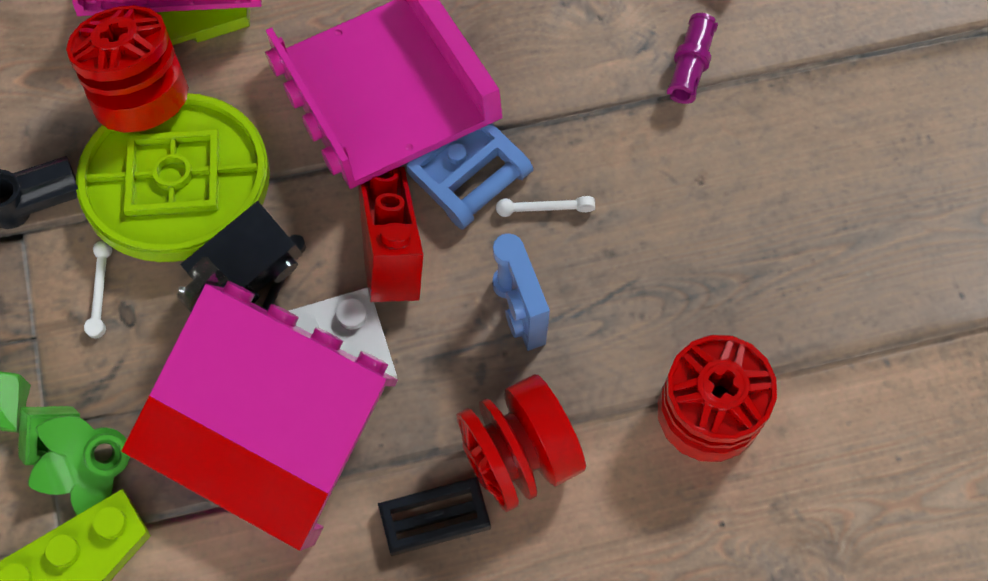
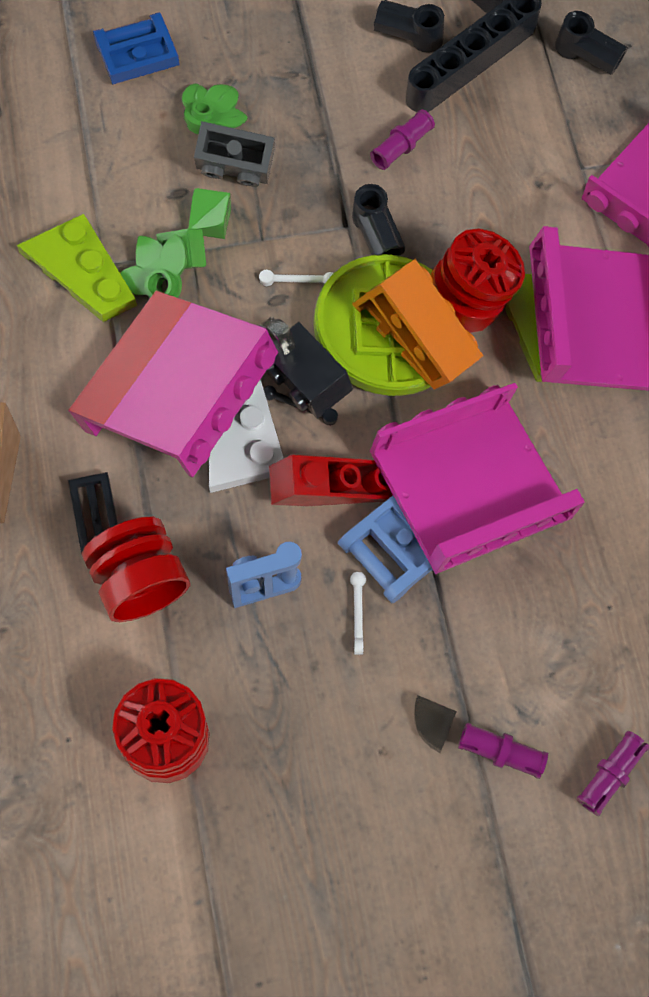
camera: 90 degrees right, 0 degrees up
(183, 125) = (422, 324): none -> orange wedge
(666, 128) = (432, 722): none -> clear smoke tile

